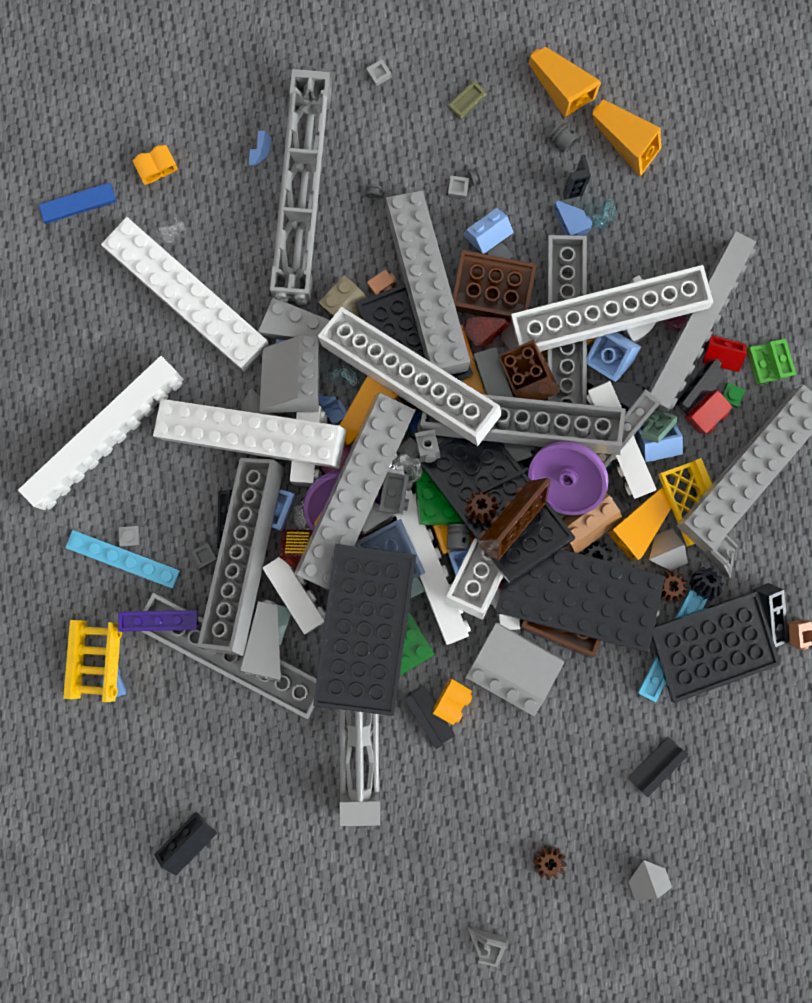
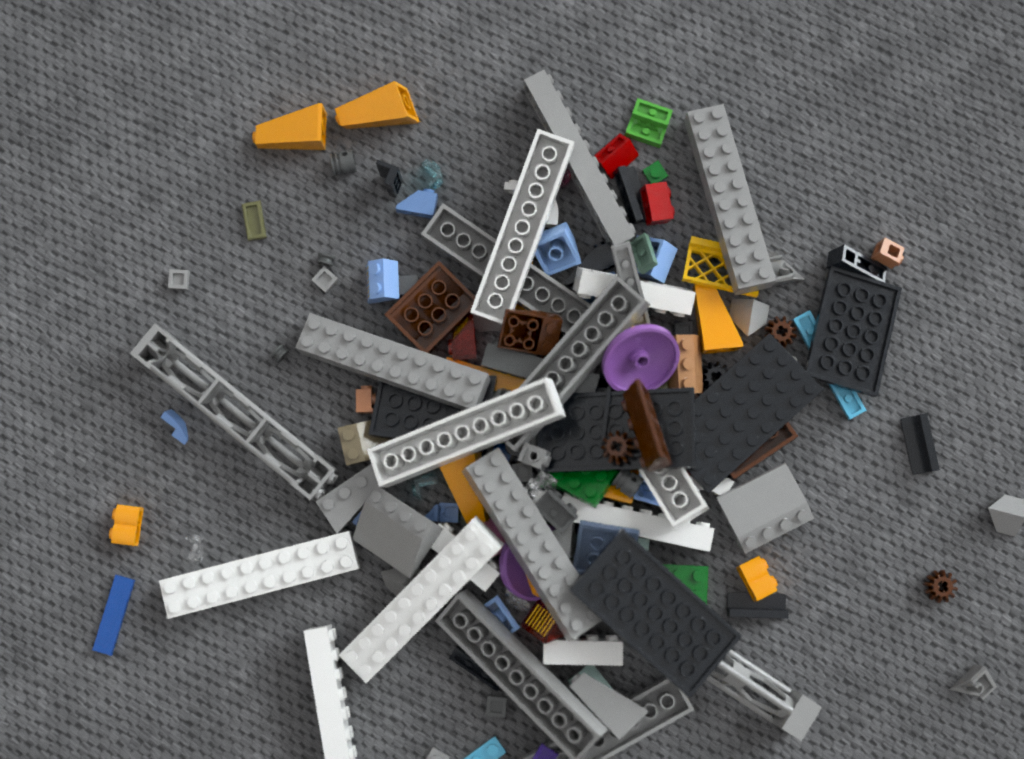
camera: 55 degrees left, 0 degrees up
(706, 583) = (797, 302): black gear -> none

